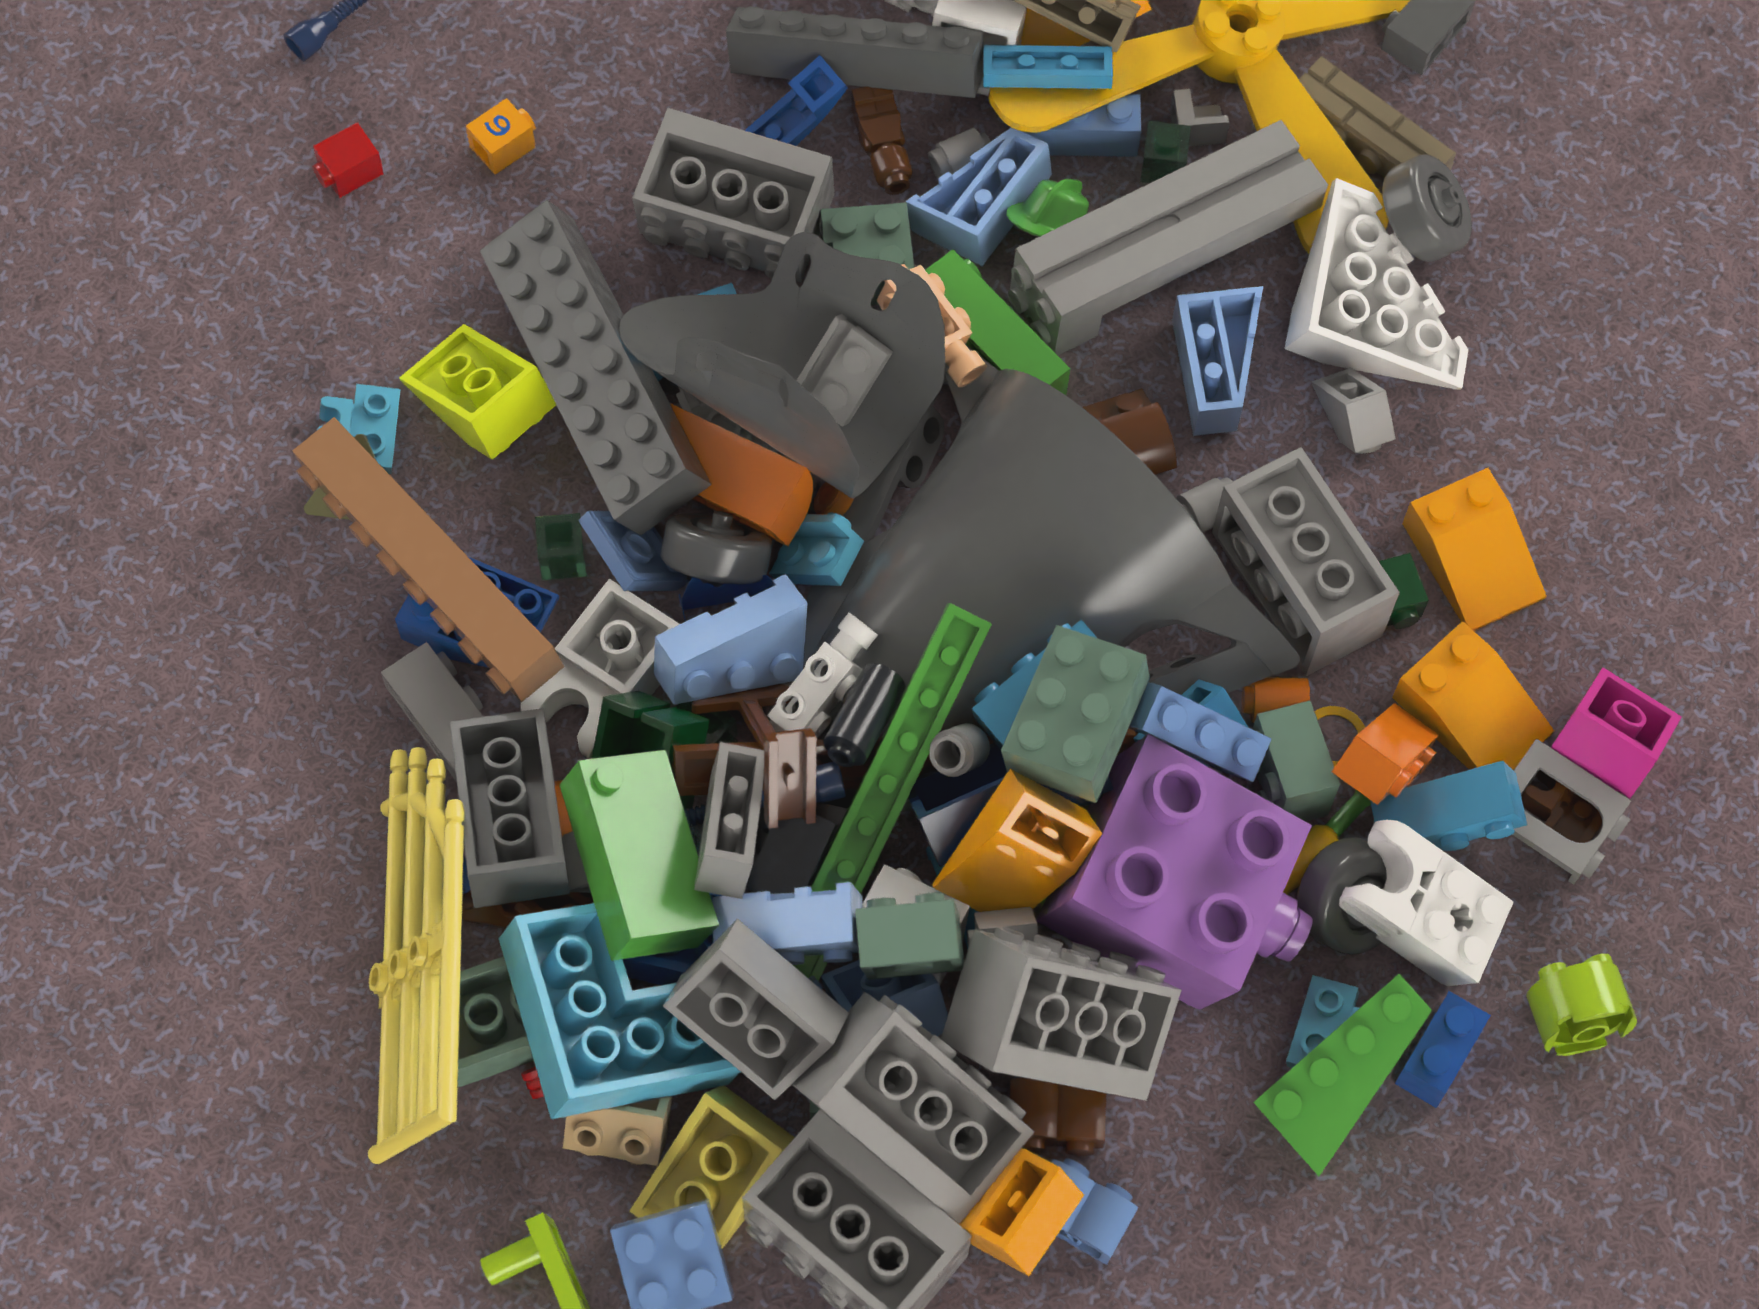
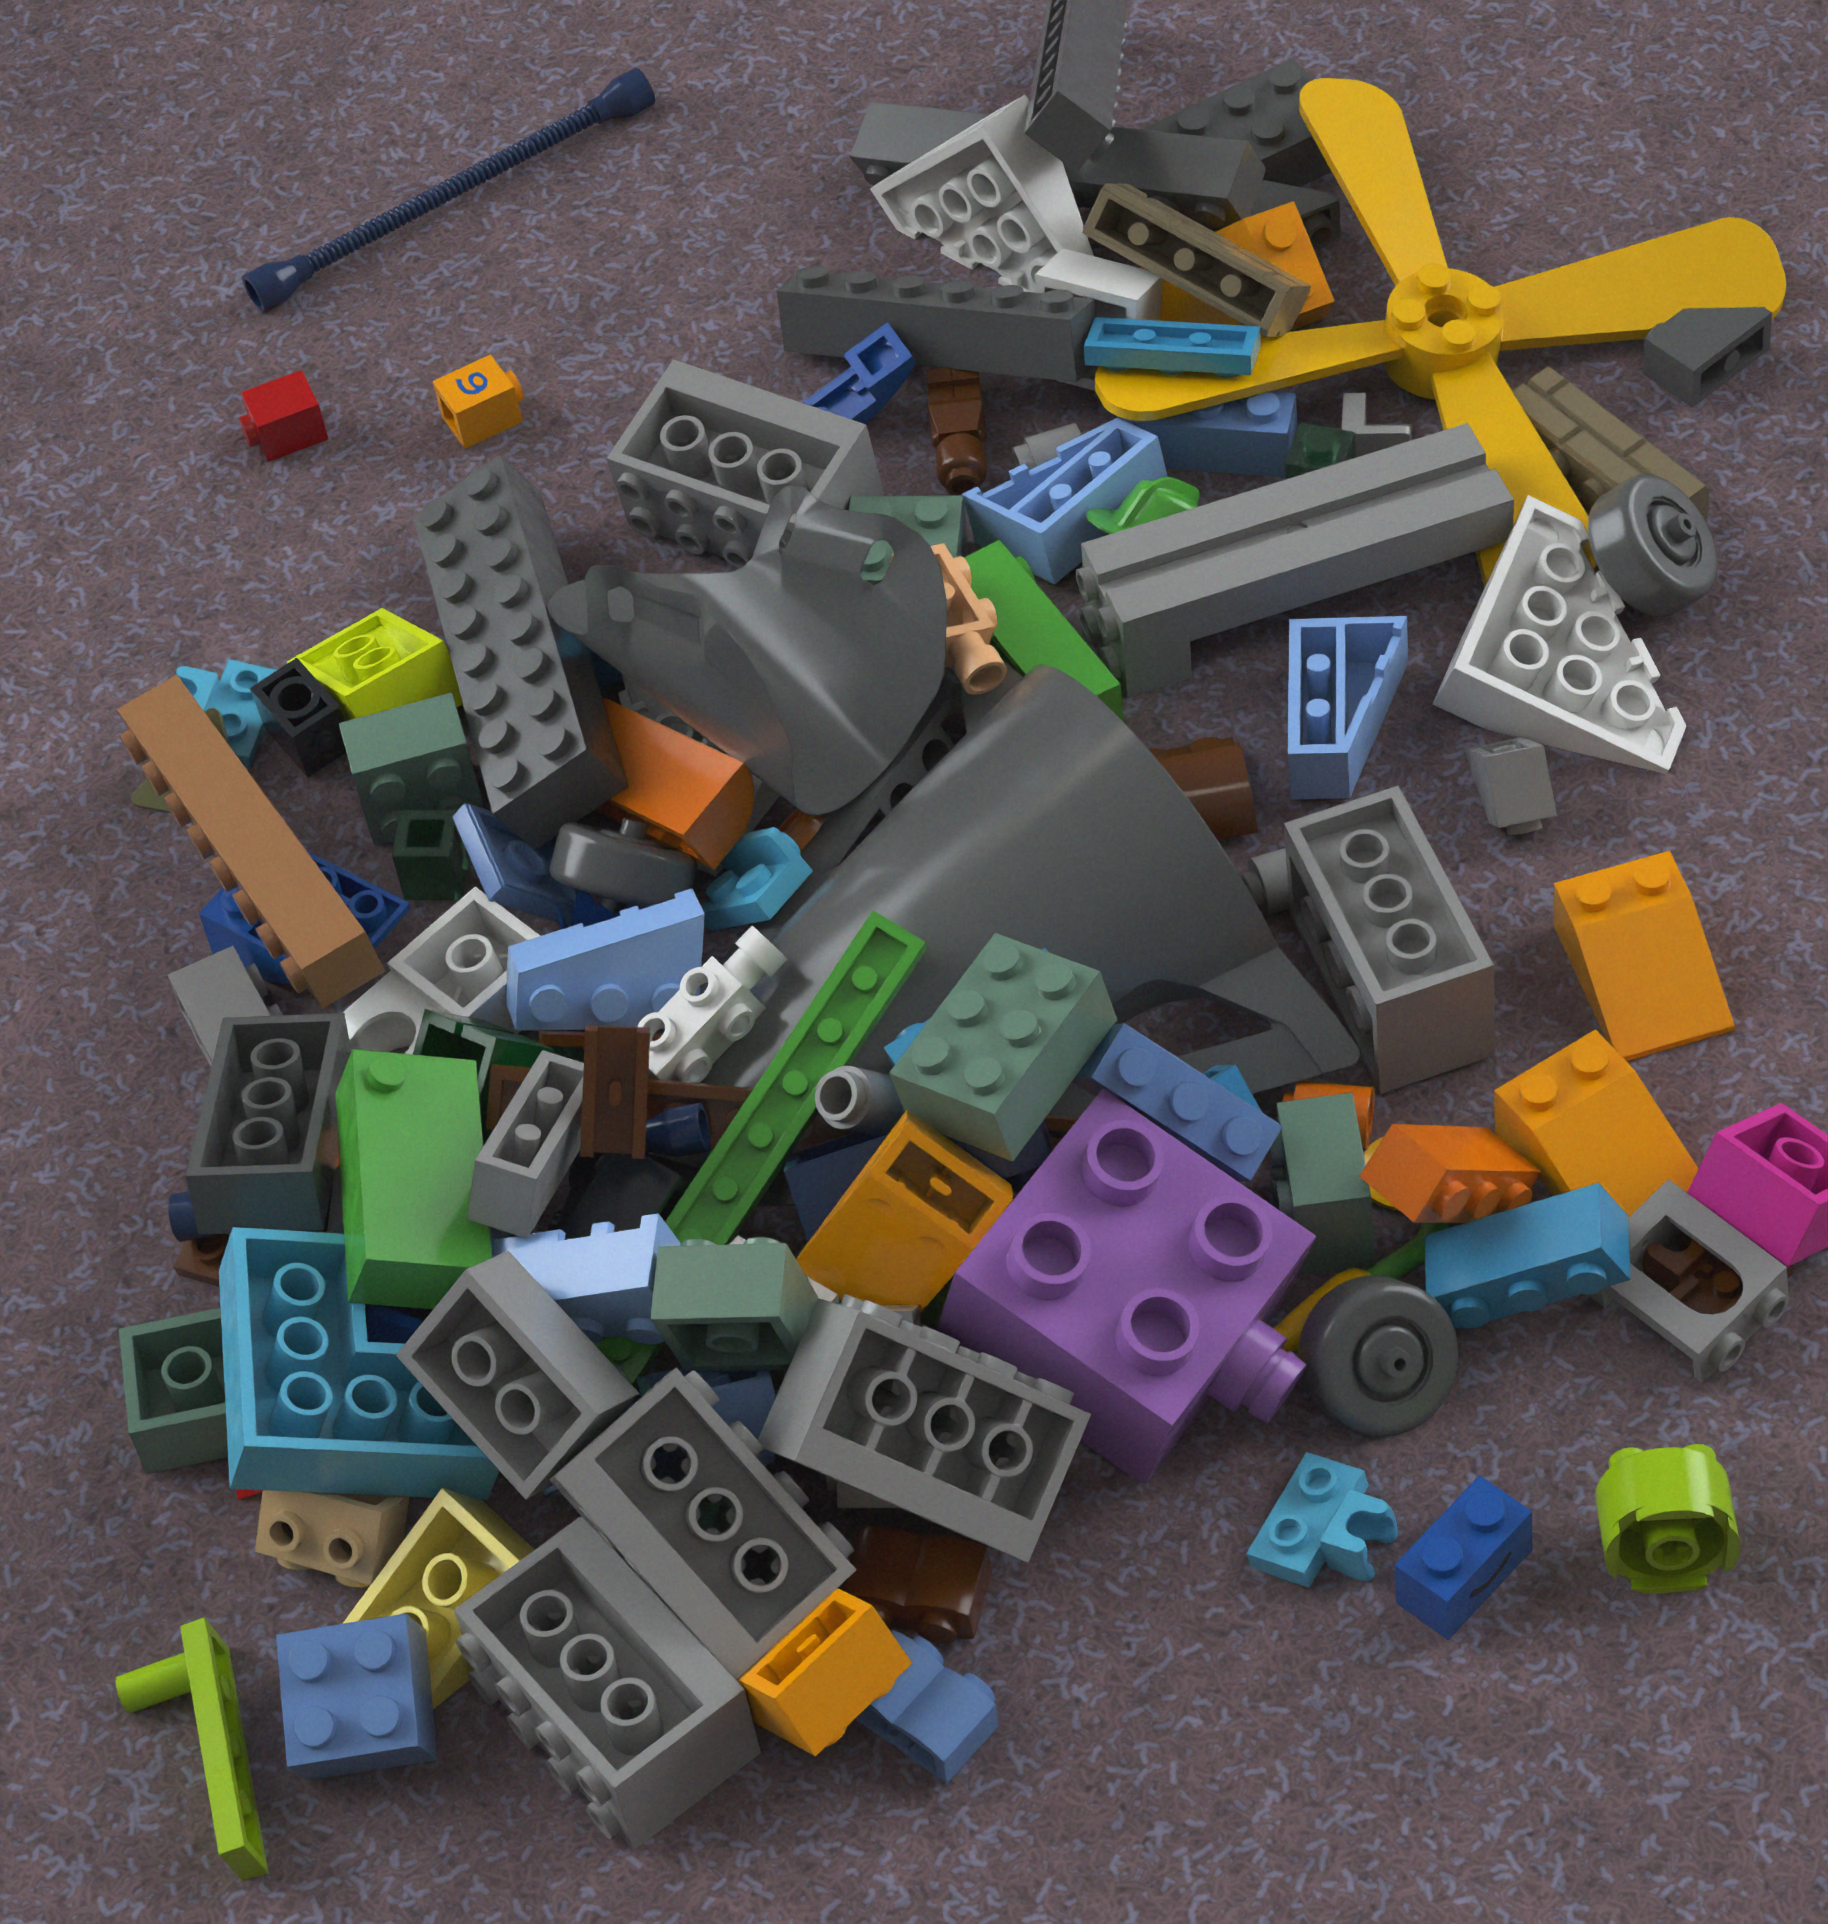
camera: 20 degrees right, 15 degrees down
(419, 956) = (113, 1304): light yellow piece -> none
(430, 433) = (300, 716): none -> black head
(532, 475) = (409, 762): none -> sand green brick
(844, 368) = (821, 661): light grey plate -> none
(863, 715) = (741, 1049): black brick -> none
(1336, 1081) = (1309, 1558): bright green wedge -> none
(1412, 595) = (1523, 998): dark green brick -> none
(1429, 906) = (1473, 1370): white brick -> none

